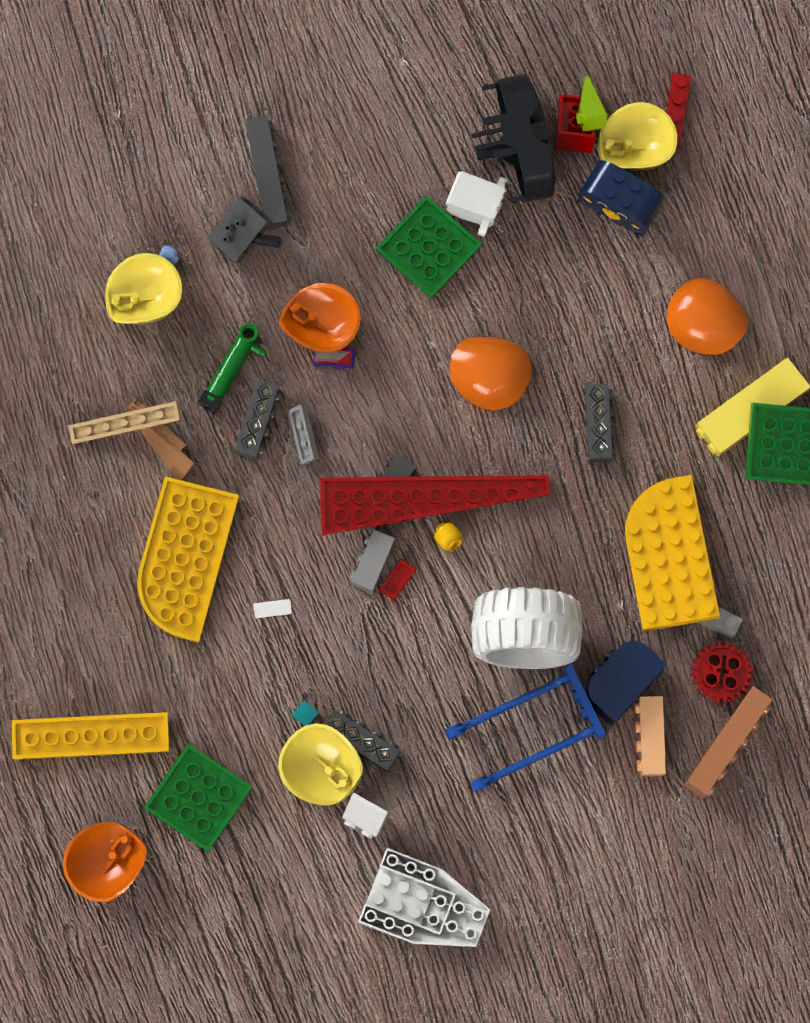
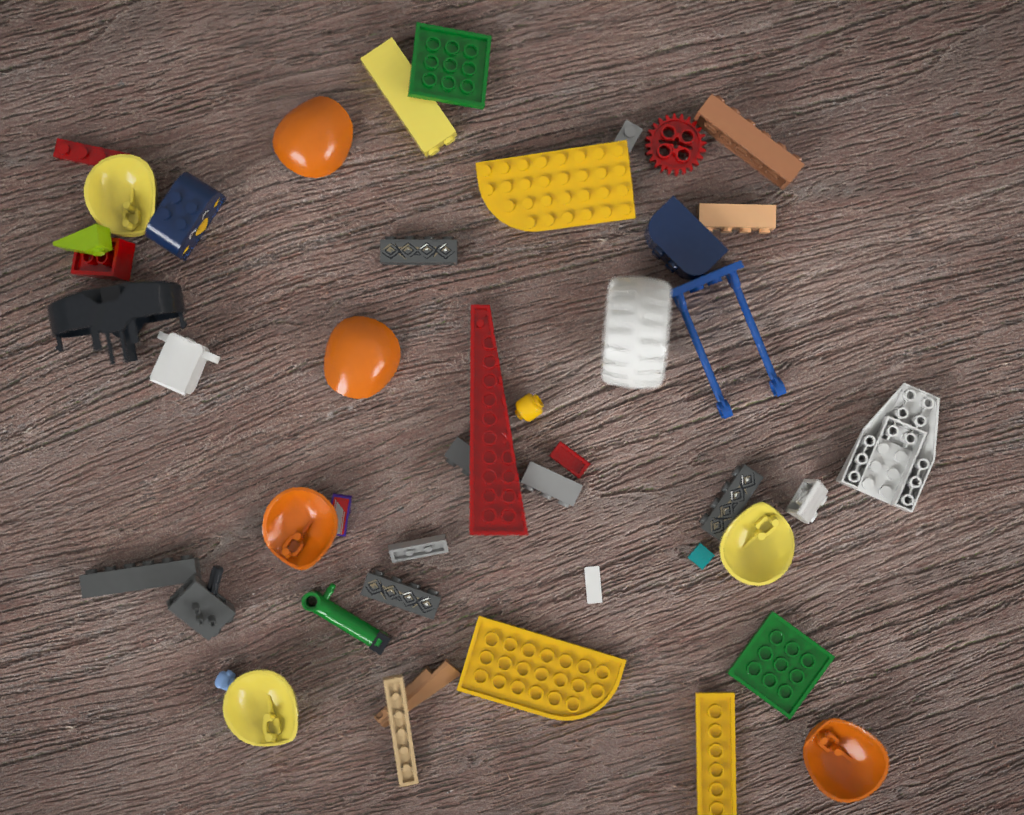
camera: 85 degrees left, 10 degrees up
(428, 247) = (227, 414): green plate -> none

